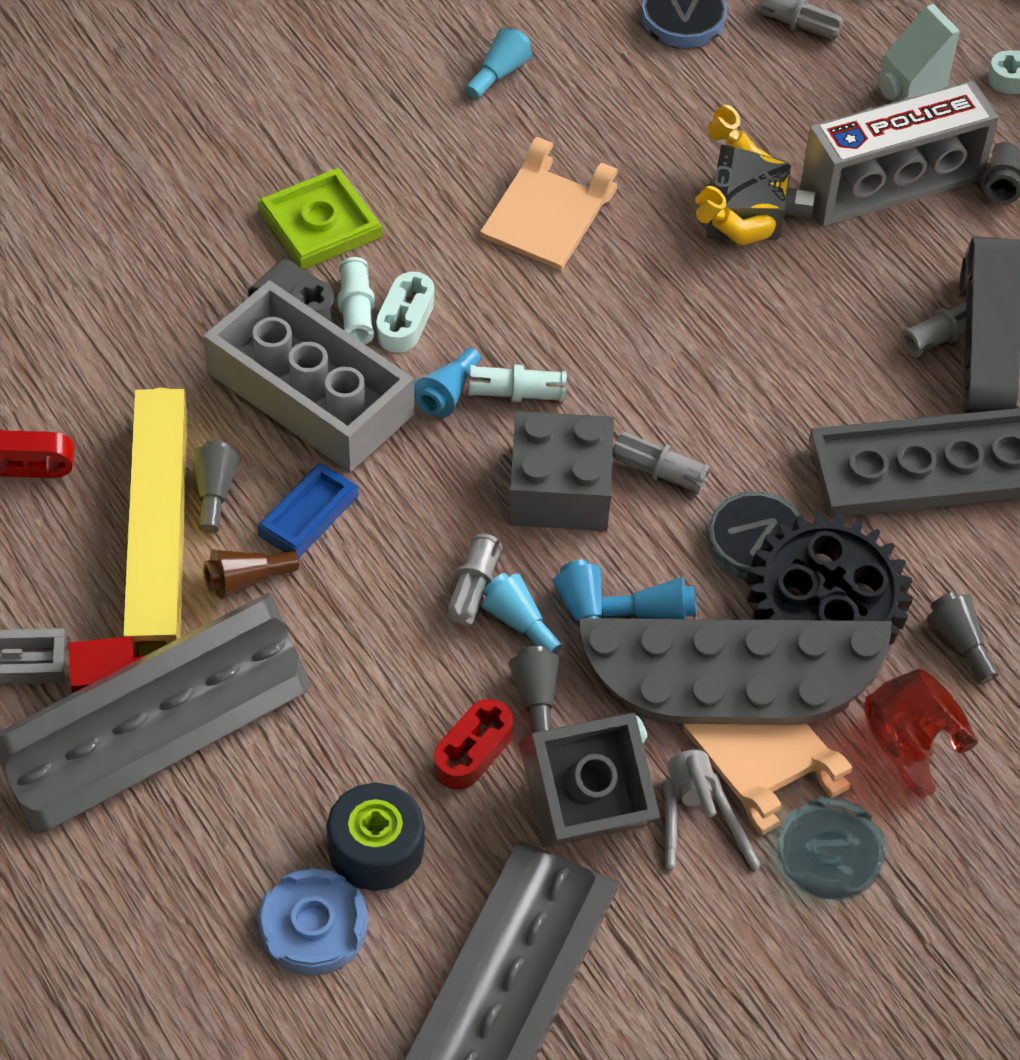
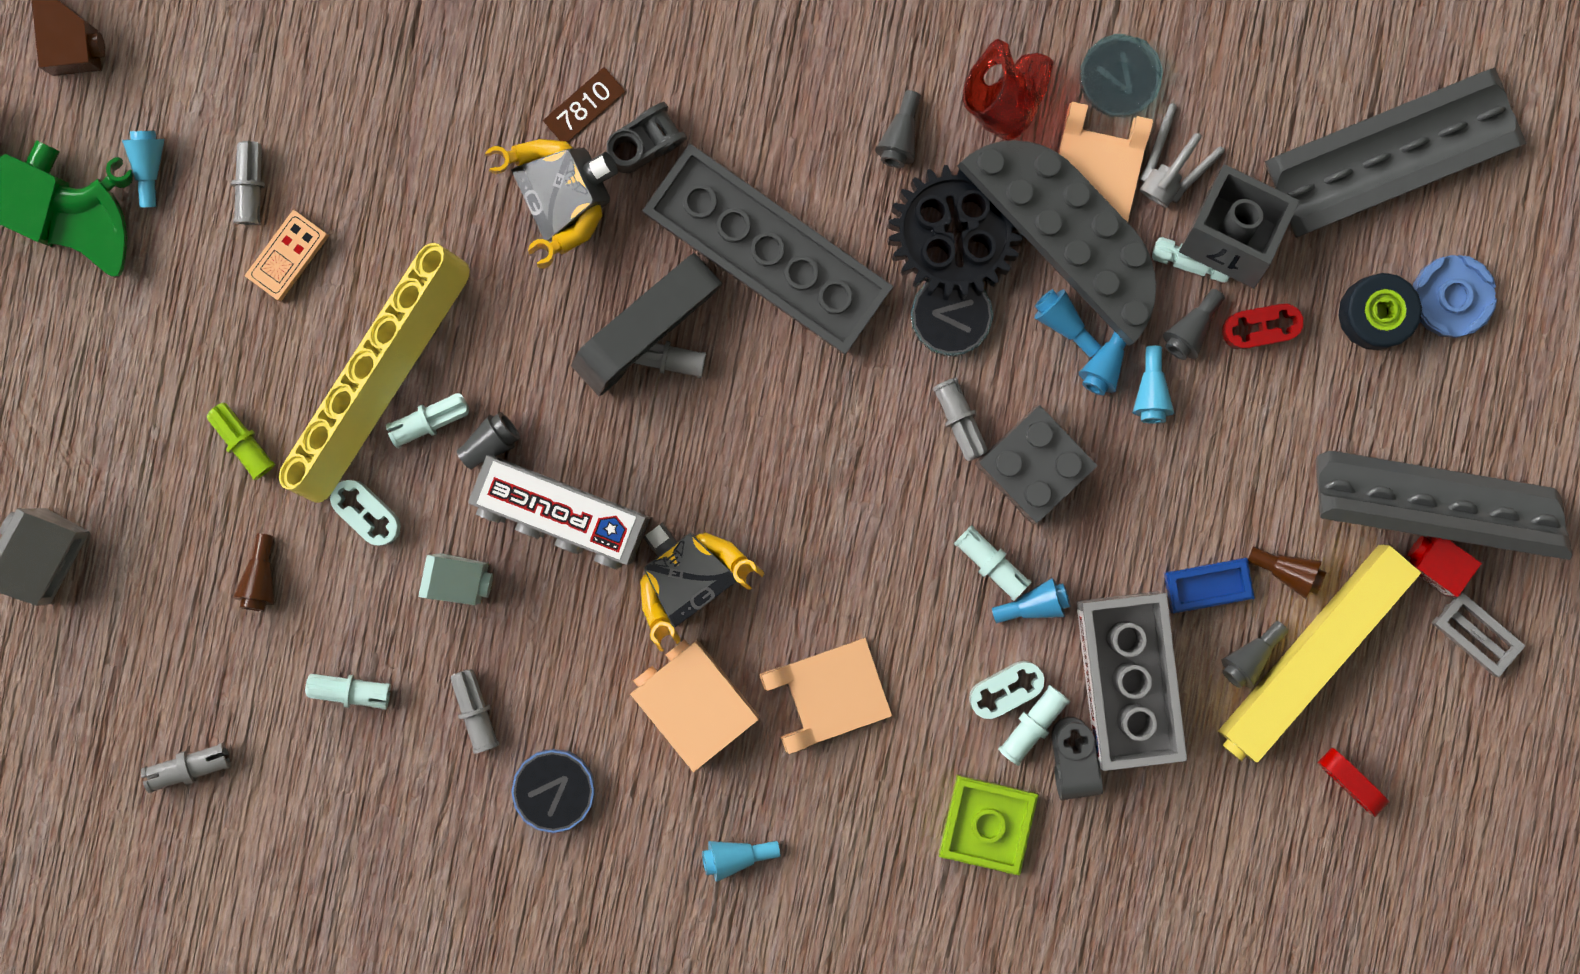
camera: 135 degrees left, 35 degrees up
(473, 578) = (1159, 437): light grey axle -> none
(646, 124) = (693, 703): none -> light nougat brick

